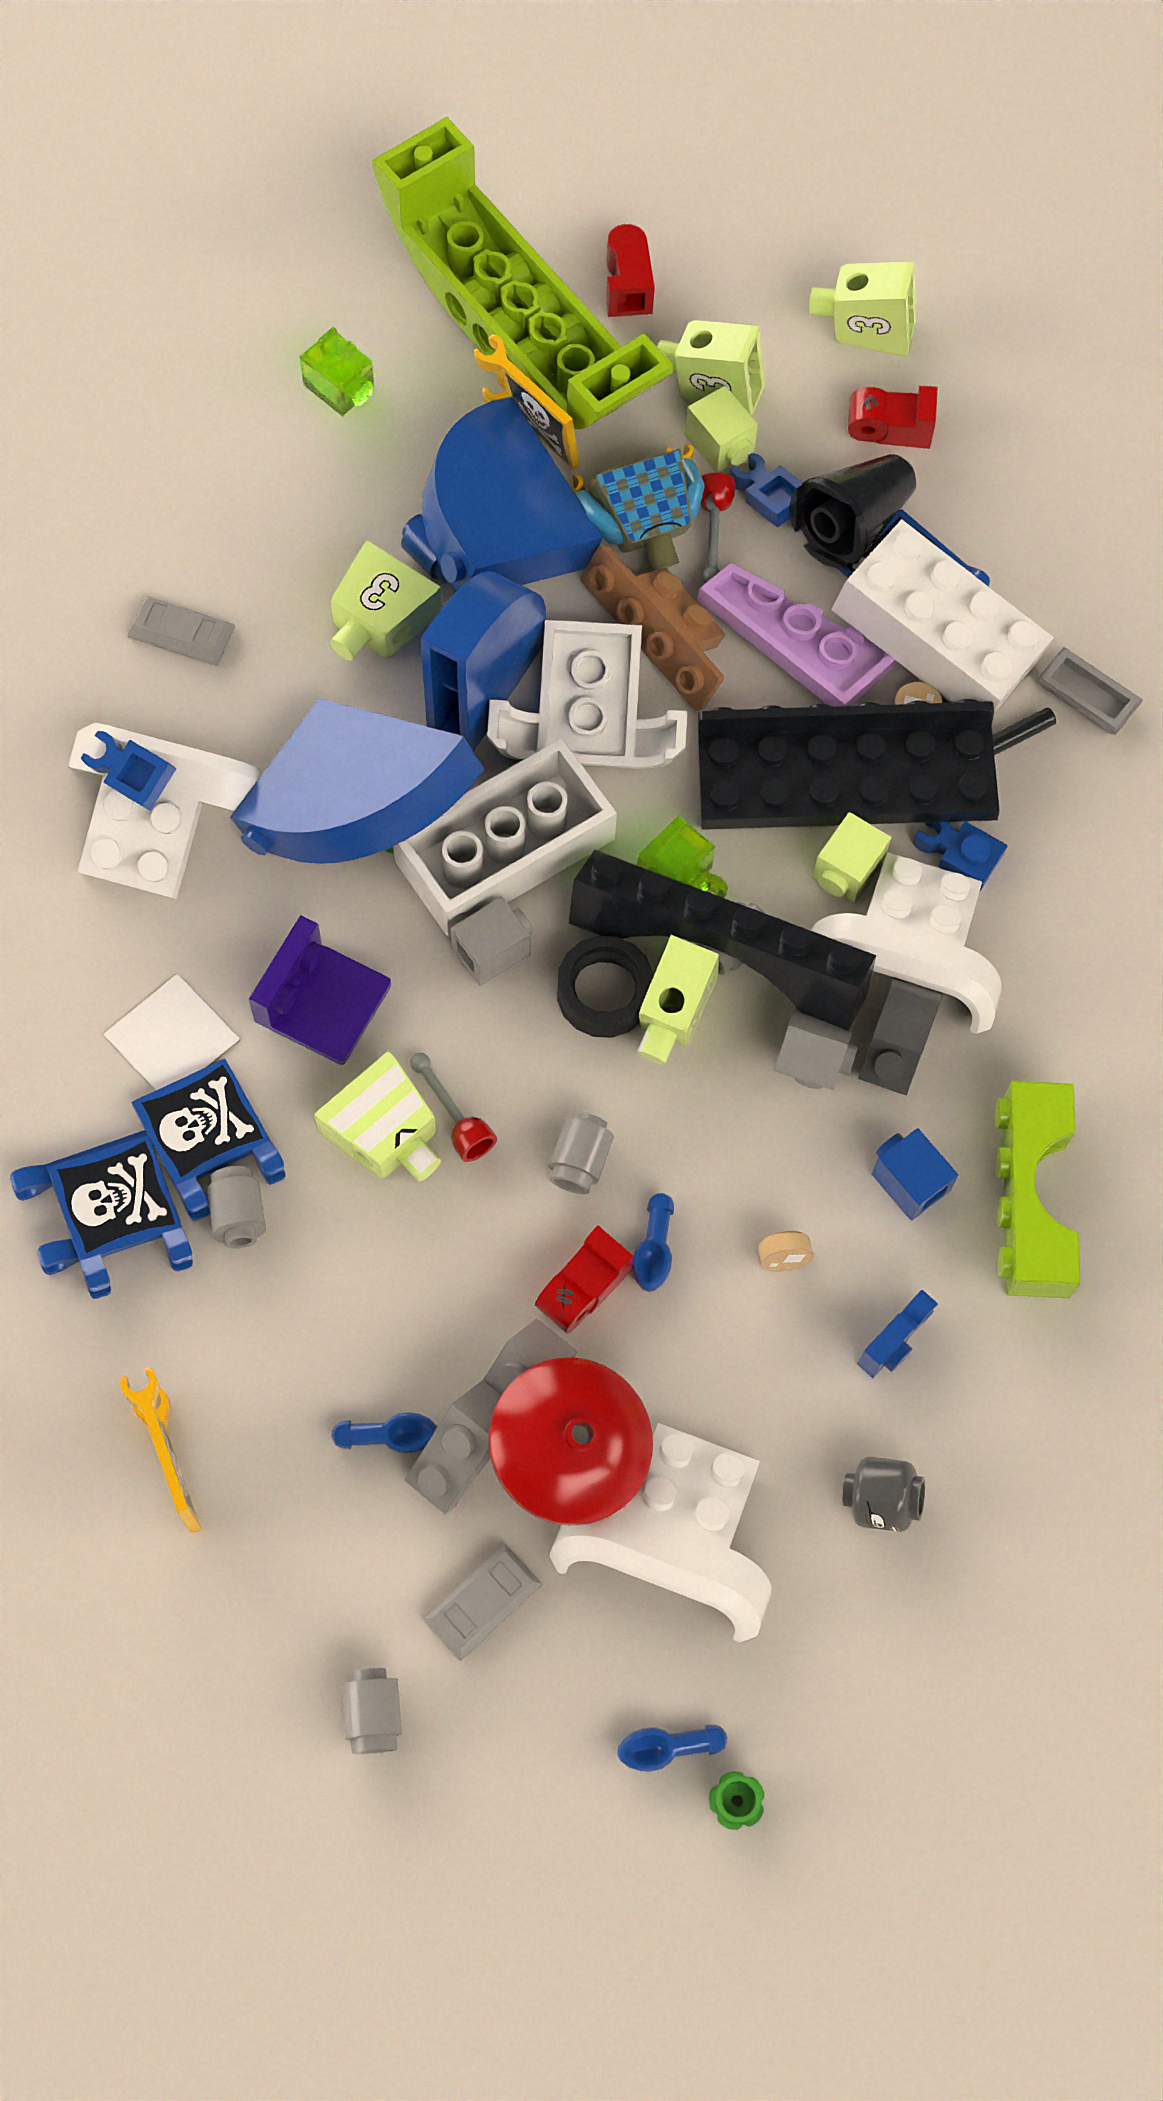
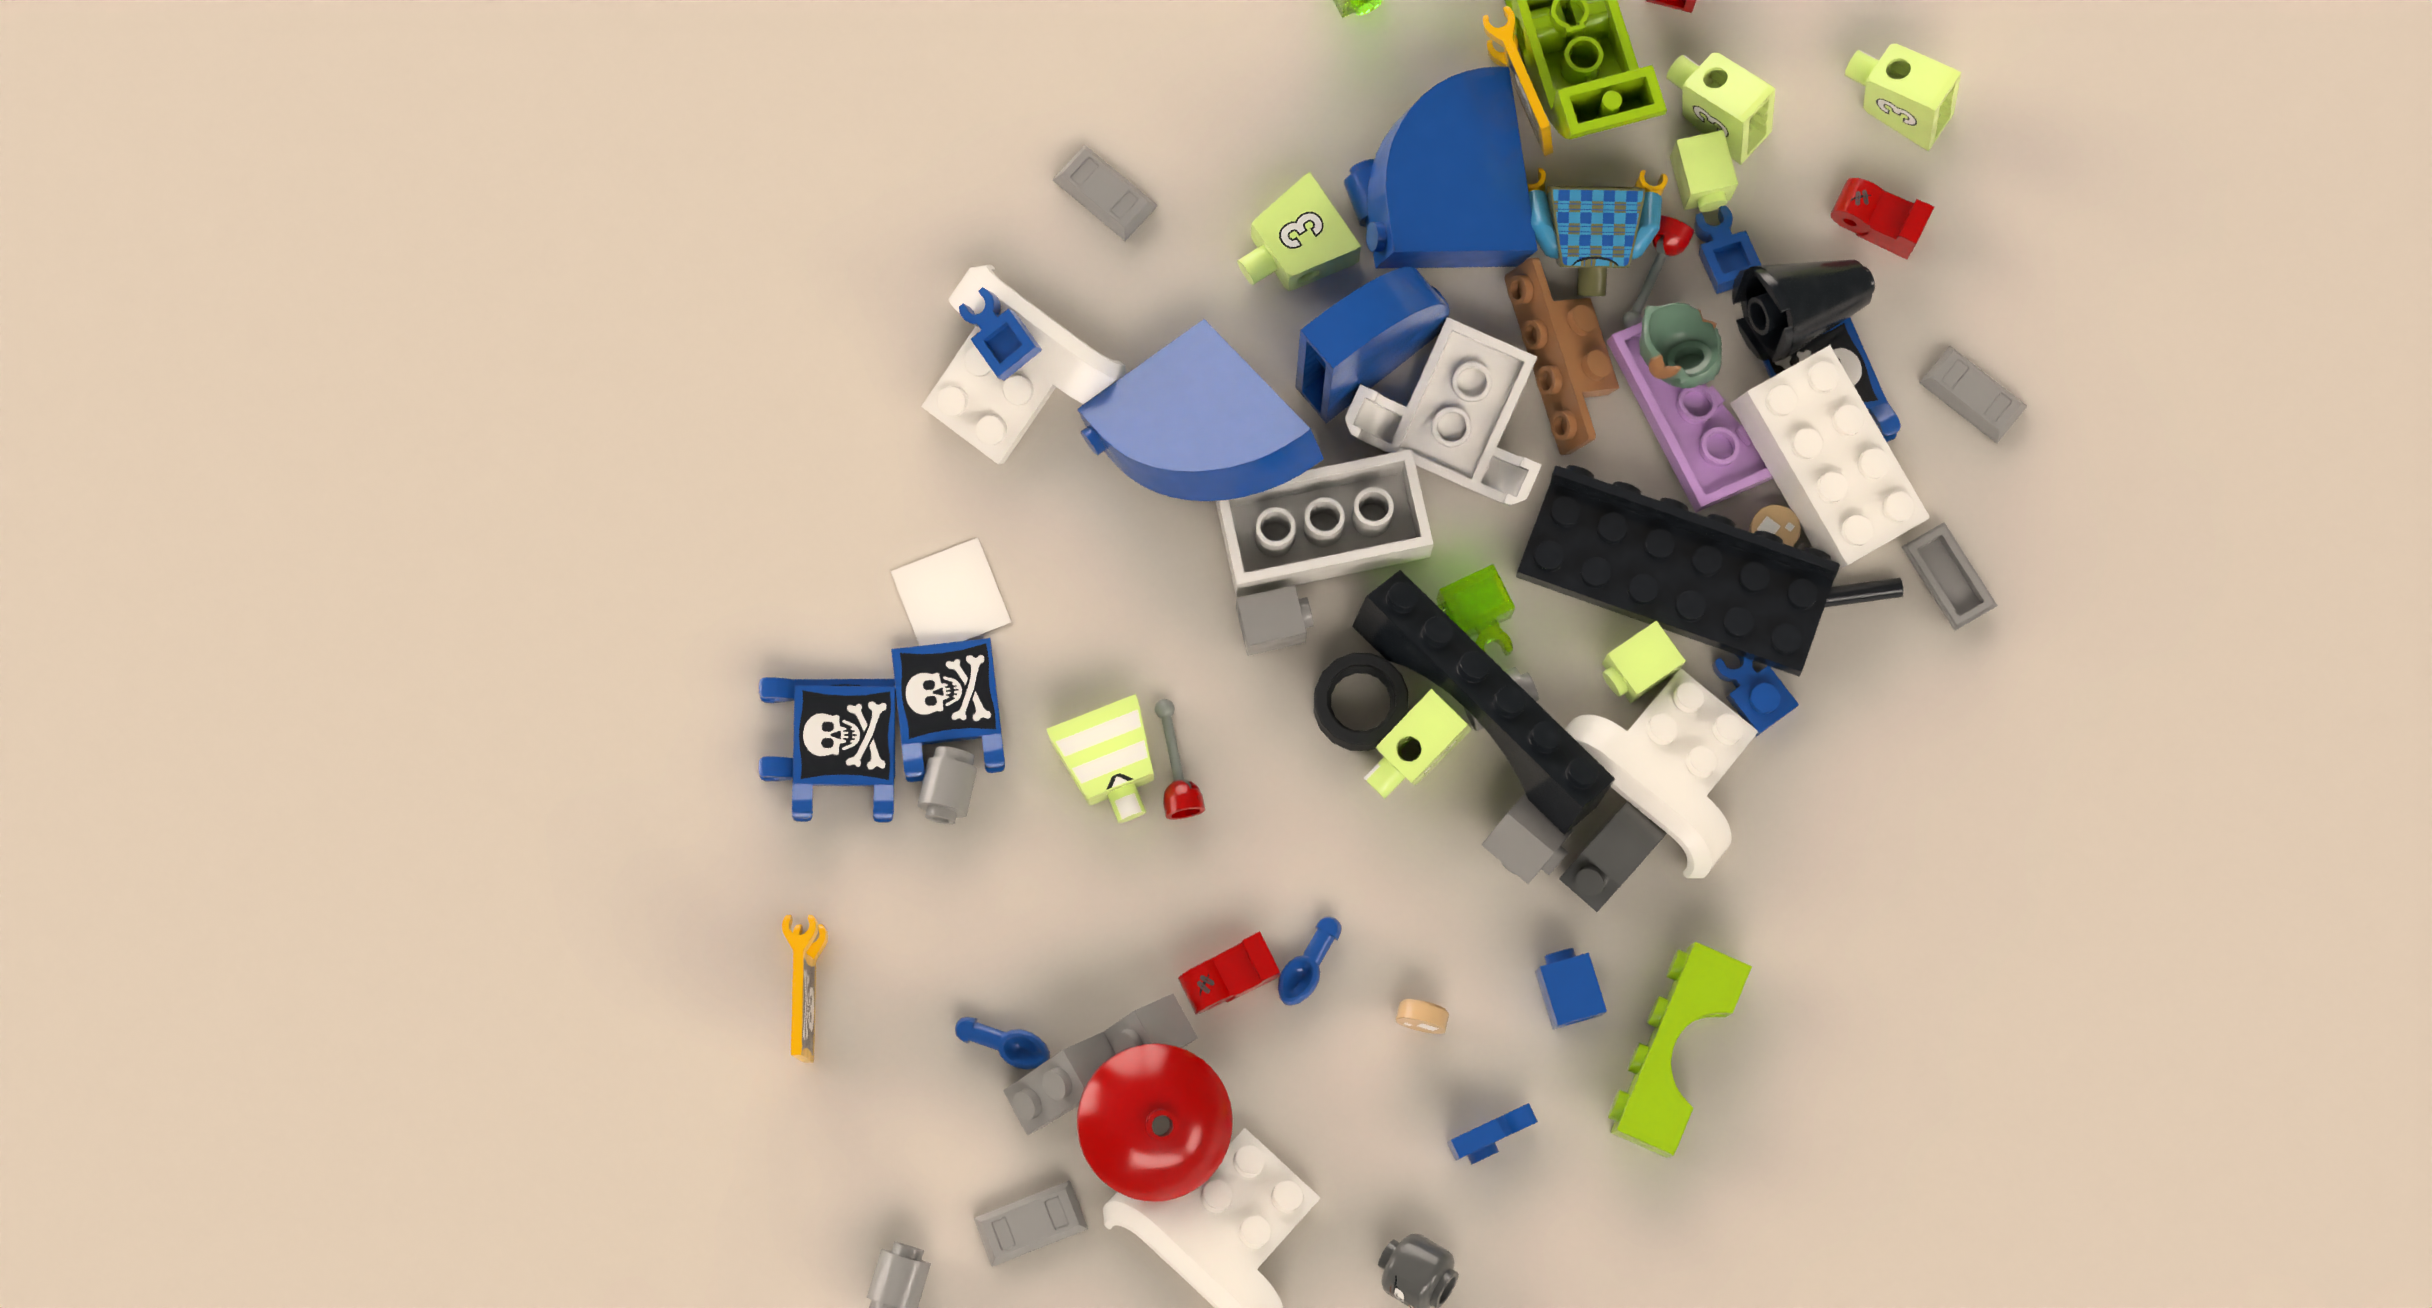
camera: 25 degrees right, 10 degrees up
(317, 994) = (1096, 612): dark purple bracket -> none
(580, 1153) = (1274, 853): light grey brick -> none
(766, 569) = (1680, 345): none -> sand green hair
(1038, 535) = (1973, 394): none -> light grey tile

